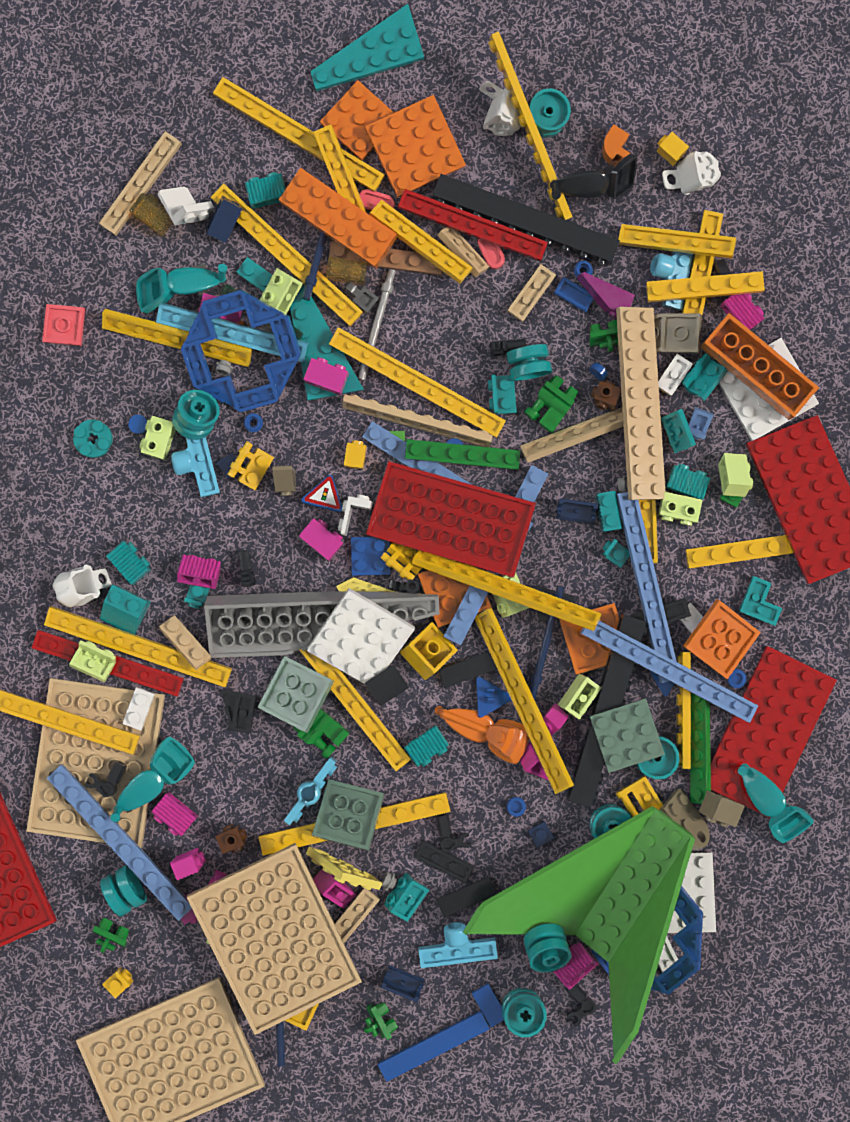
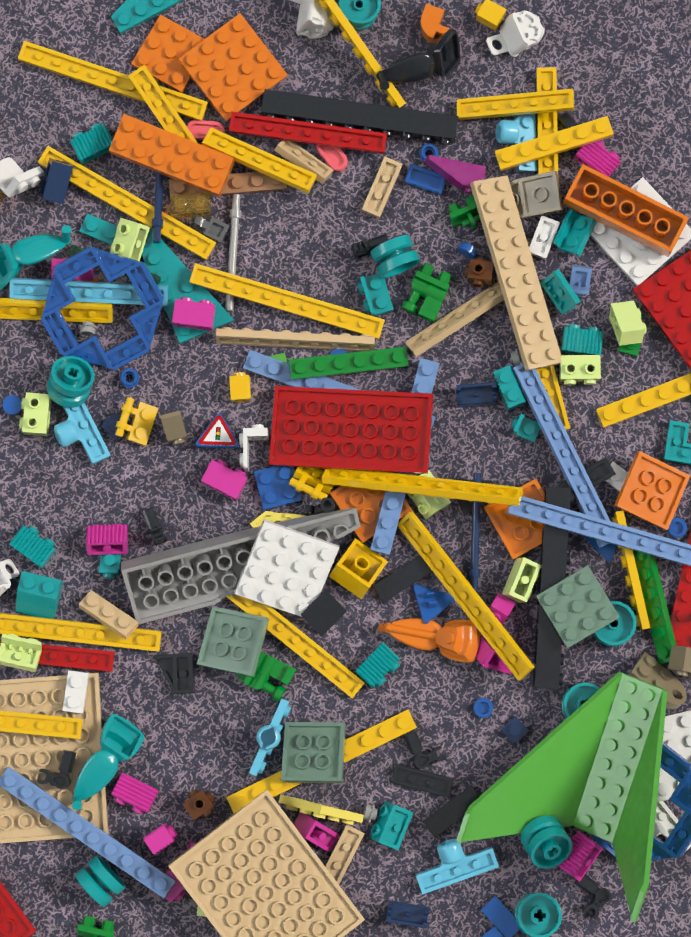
camera: 15 degrees left, 5 degrees down
(643, 793) = (608, 664): yellow plate -> none

